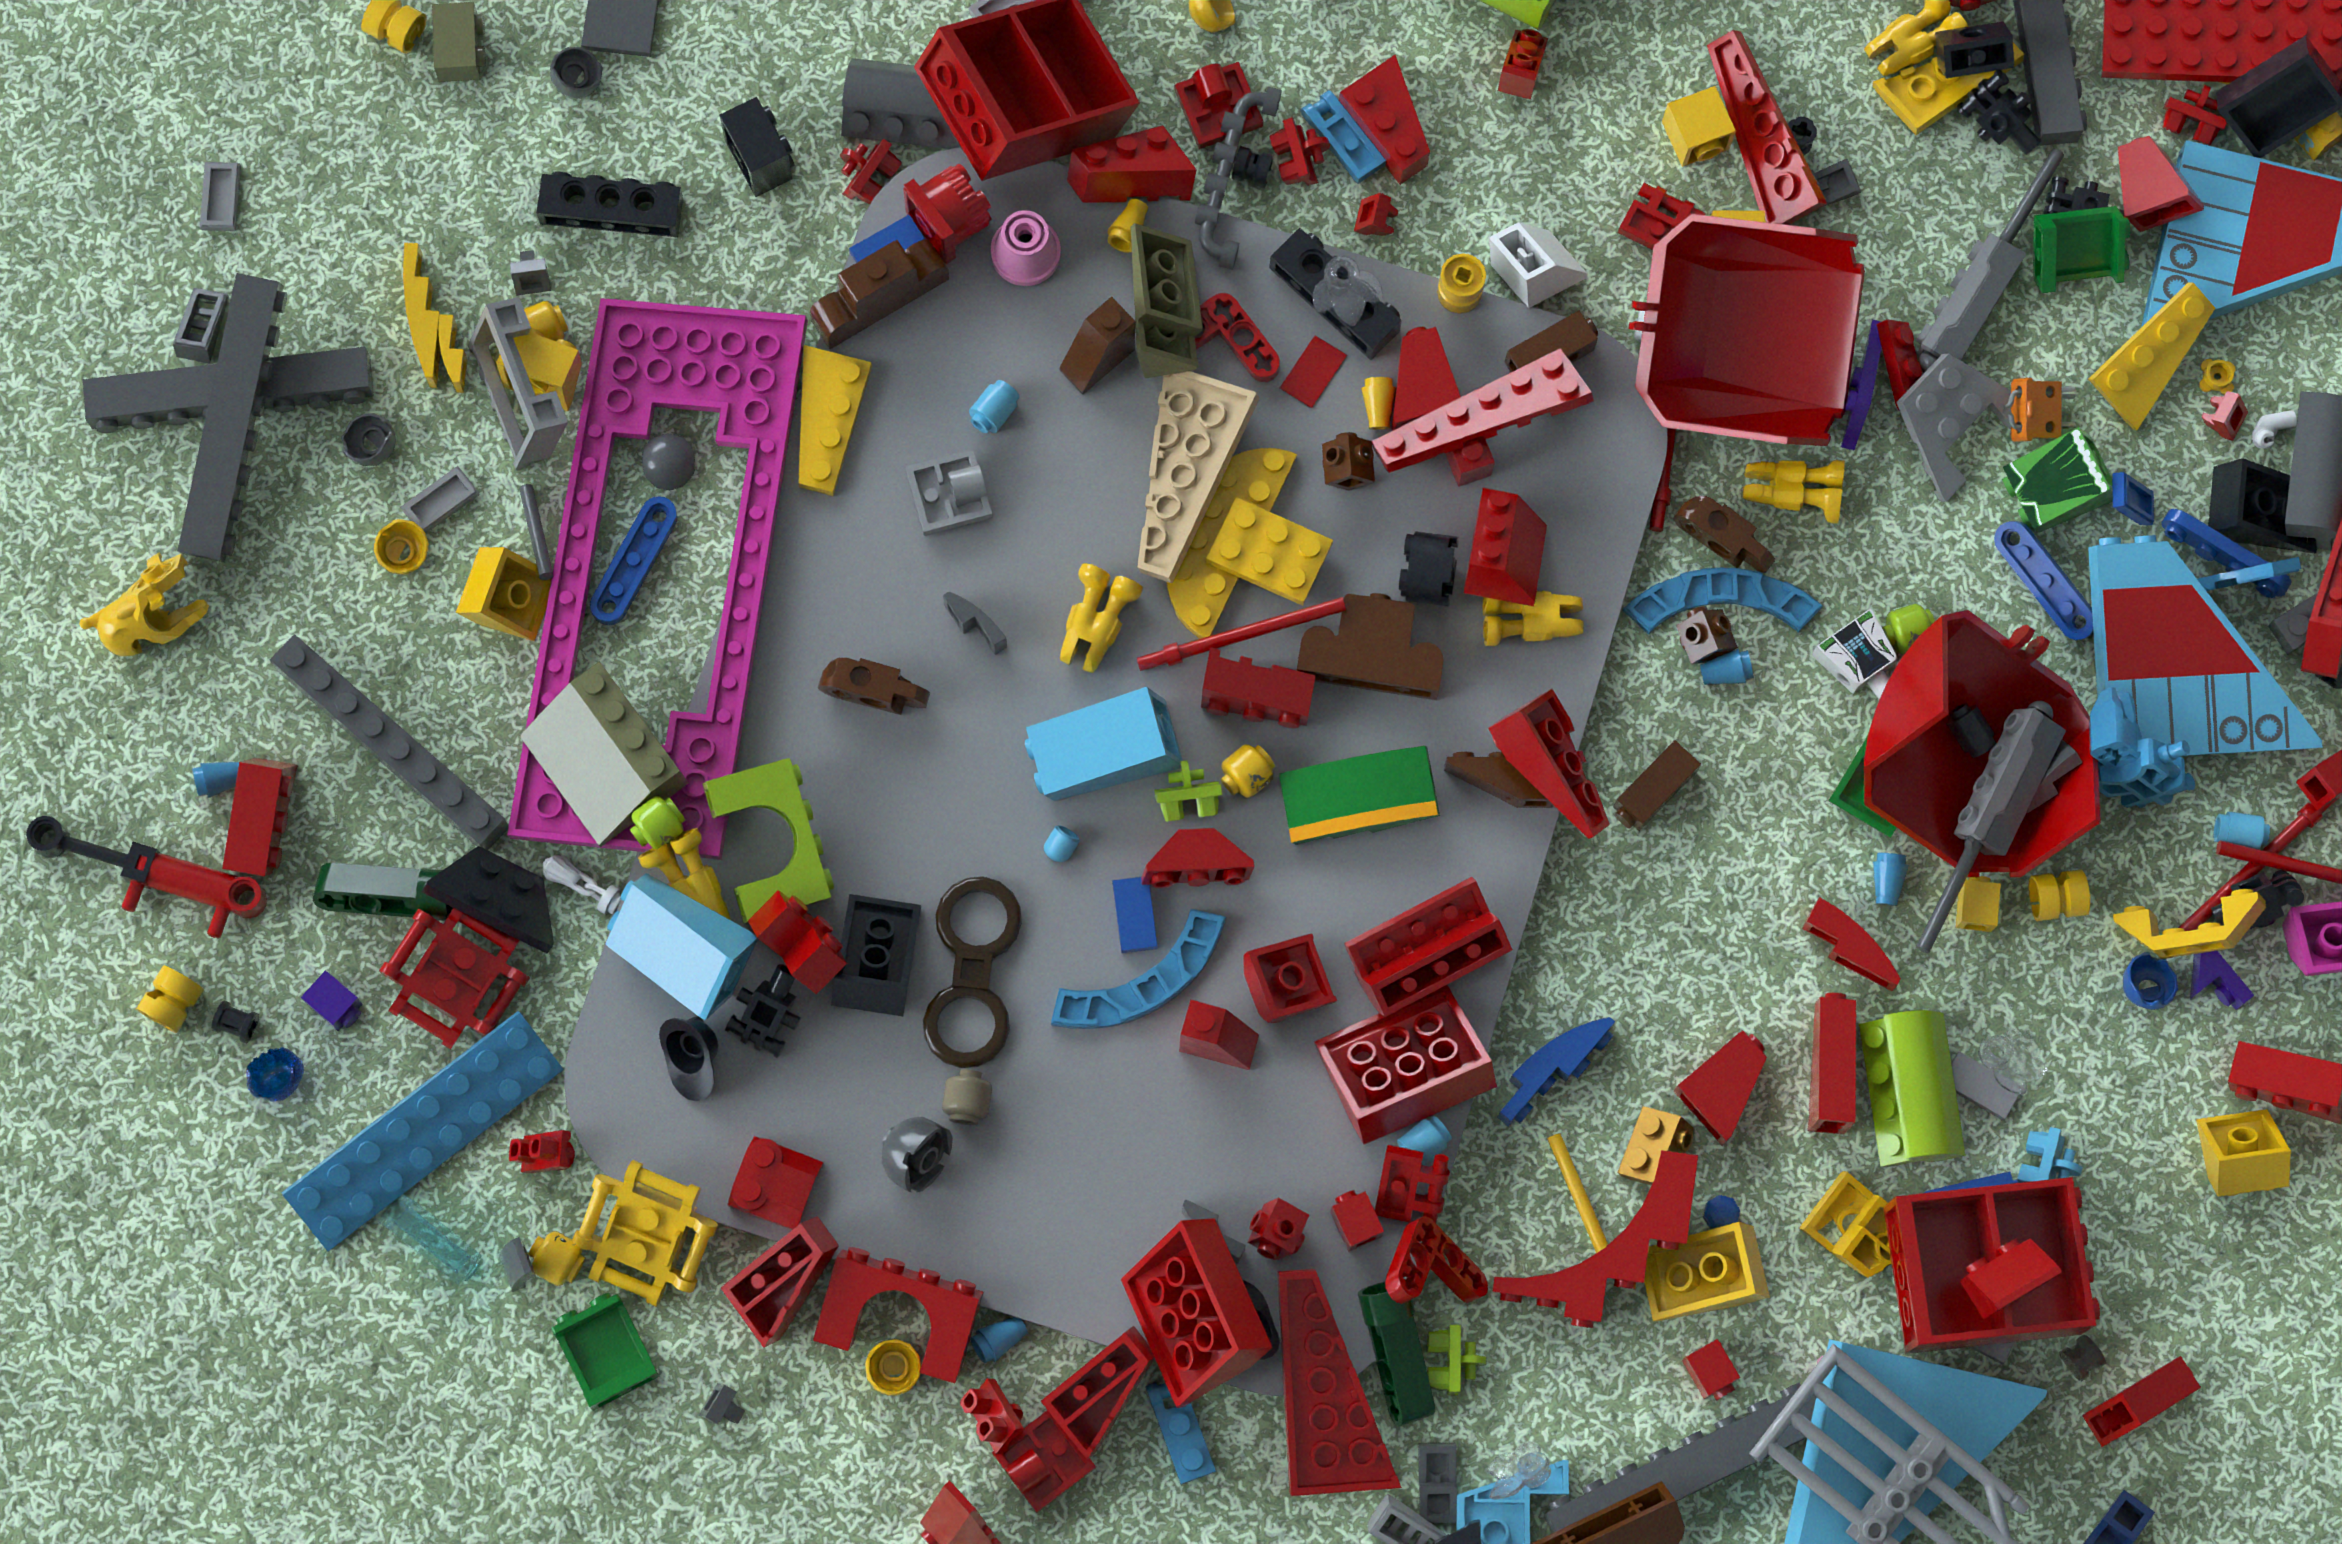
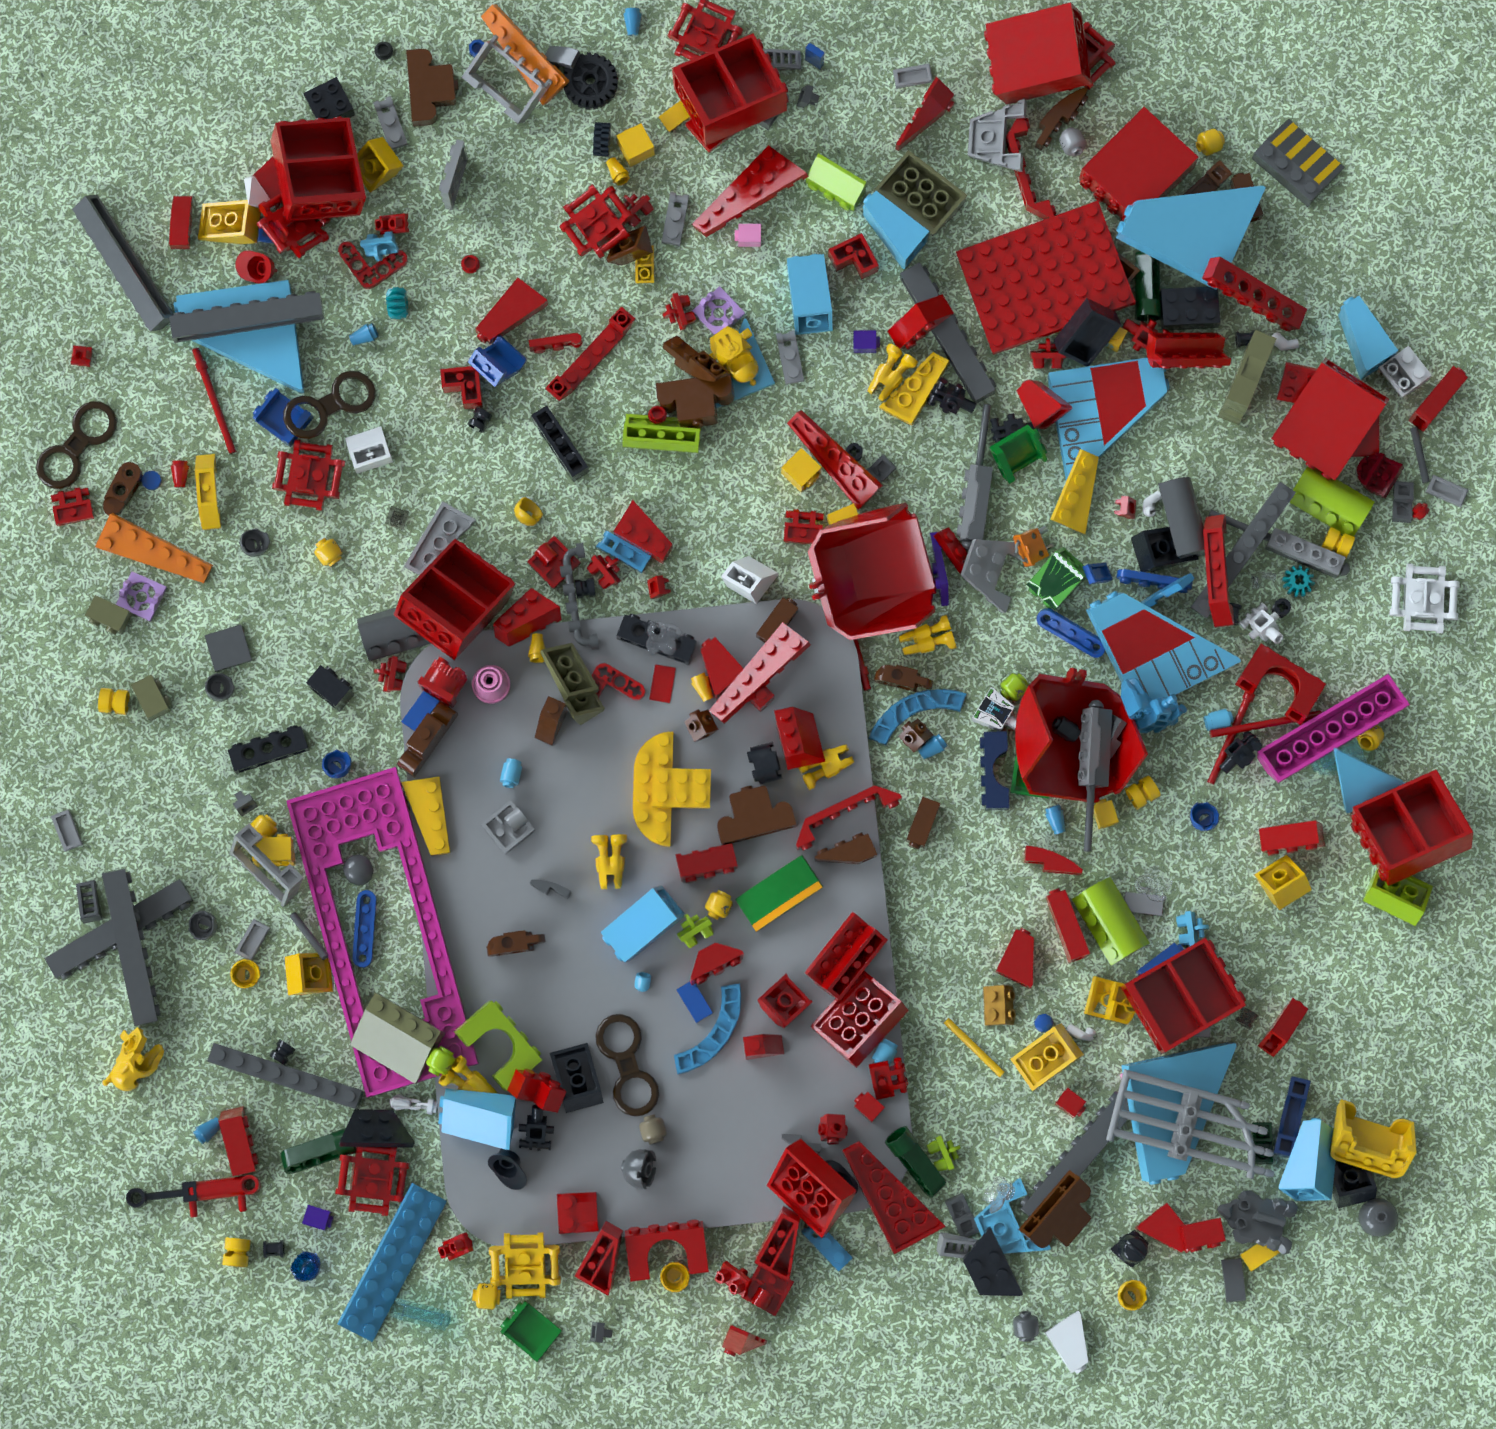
camera: 20 degrees left, 5 degrees up
(404, 701) = (282, 1051): none -> black wheel
(421, 319) = (202, 853): yellow slope -> none
(454, 359) = (226, 865): yellow slope -> none
(516, 1264) = (469, 1308): dark grey slope -> none
(699, 281) = (332, 769): none -> blue hair
(996, 1339) = (719, 1239): dark azure cone -> none
(1175, 653) = (657, 860): red bar -> none
(1190, 453) = (620, 754): tan wing -> none
(1460, 1275) = (907, 1103): red beam -> none
(1461, 283) = (717, 607): yellow wheel -> none
(1522, 63) = (698, 474): red slope -> none
(1542, 750) = (861, 834): red wedge -> none
(1562, 1056) = (935, 978): blue slope -> none
(1583, 1286) = (1006, 1068): red arch -> none
(1614, 714) = (887, 798): none -> red slope
(1776, 1259) = (1081, 1035): none -> white arm
(1803, 792) = (996, 796): none -> dark blue arch
(1974, 49) = (923, 371): black brick -> none
(2009, 1276) = (1194, 1002): red slope -> none
(2212, 967) = (1232, 796): dark purple slope -> none
(2221, 367) = (1118, 488): yellow plate -> none
(2238, 911) = (1233, 768): yellow slope -> none

